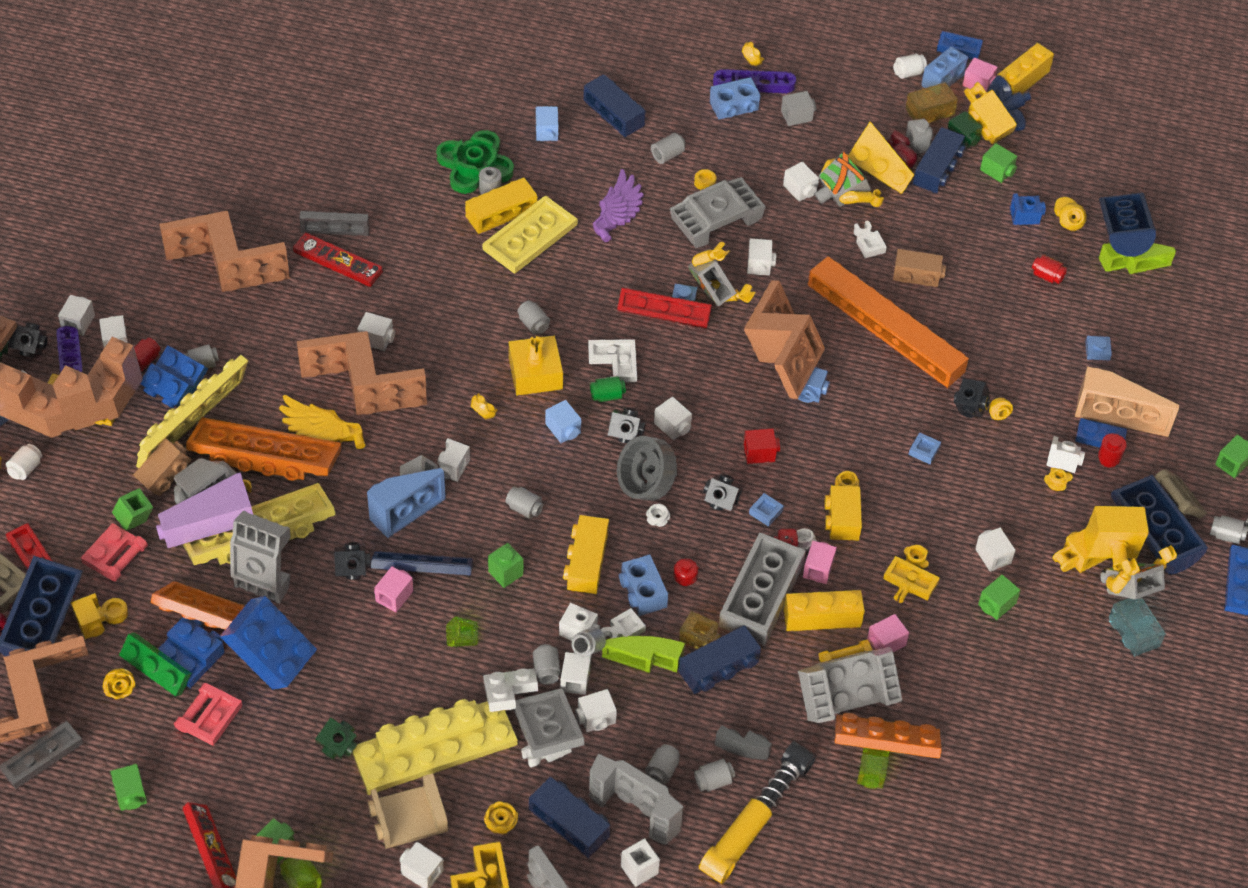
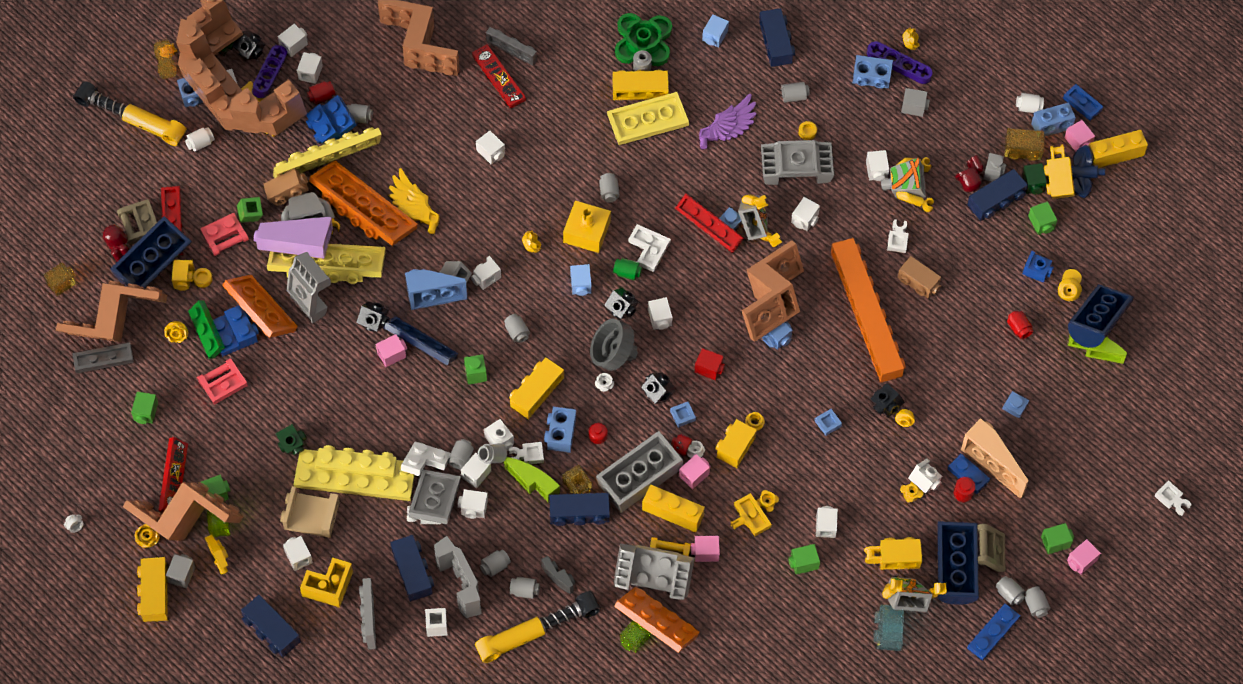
camera: 30 degrees right, 10 degrees up
(268, 643) = (282, 351): blue brick -> none
(370, 391) = (462, 168): nougat bracket -> none
(461, 632) = (420, 403): clear neon green slope -> none
(502, 810) = (367, 540): yellow plate -> none
(880, 160) = (946, 175): yellow wing -> none
(1116, 533) = (909, 555): yellow brick -> none

